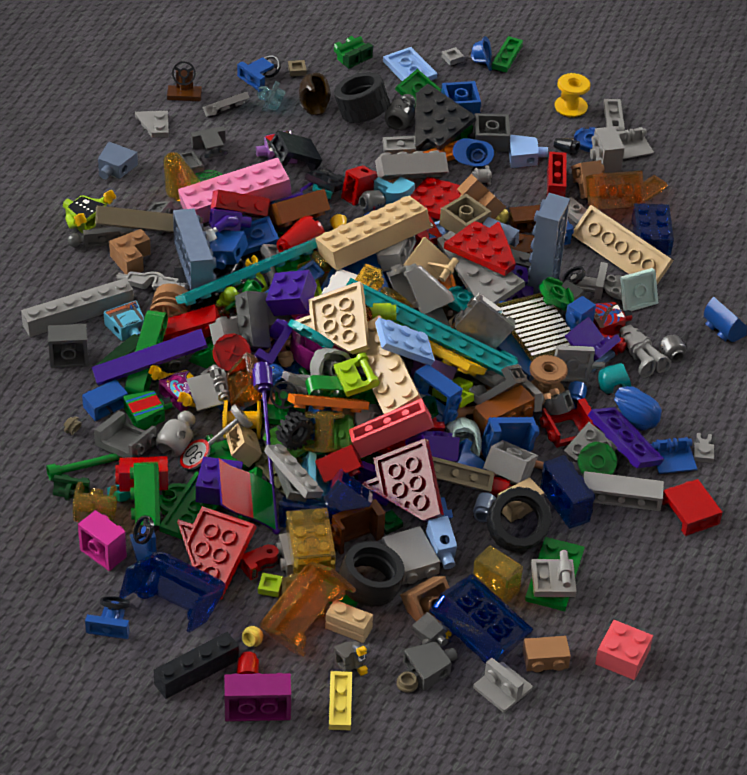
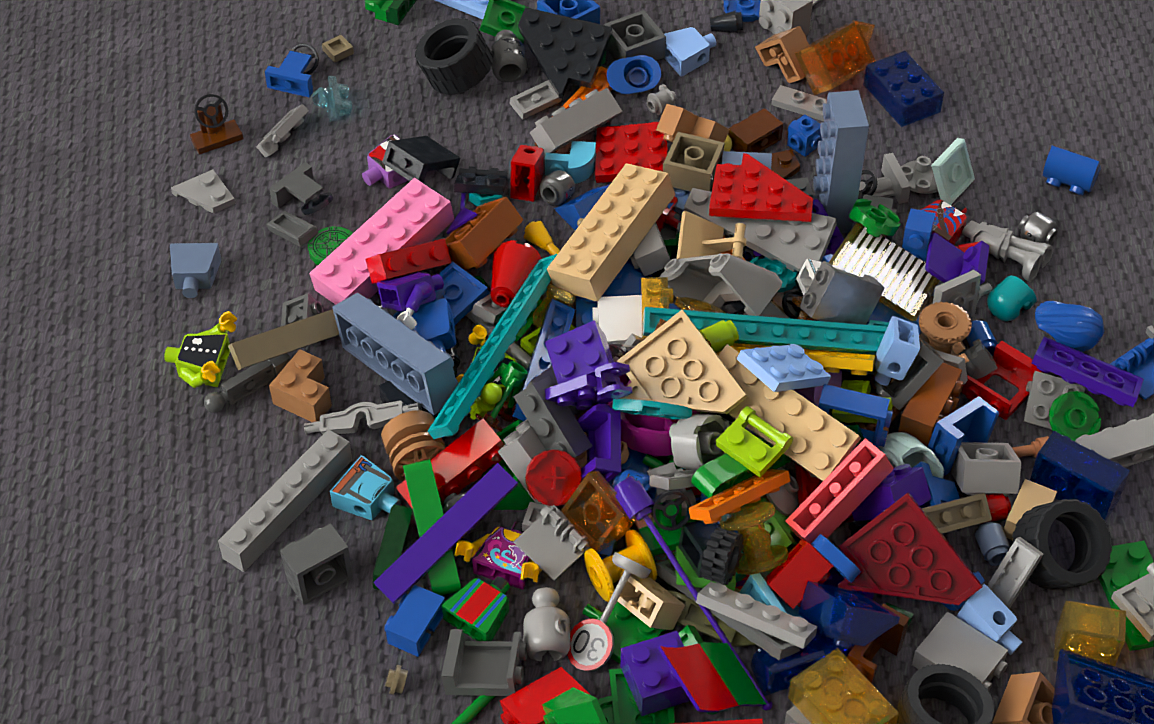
camera: 25 degrees left, 5 degrees up
(177, 174) = (297, 255): clear yellow cone -> none
(281, 308) = (590, 389): none -> dark purple plate
(314, 93) = (387, 73): dark brown hair -> none
(365, 462) = (836, 558): none -> blue beam
(472, 521) = (1014, 571): none -> light grey plate
(489, 370) = (896, 350): none -> light blue torso
(556, 173) = (750, 67): red brick -> none
(619, 244) = (906, 127): tan plate -> none

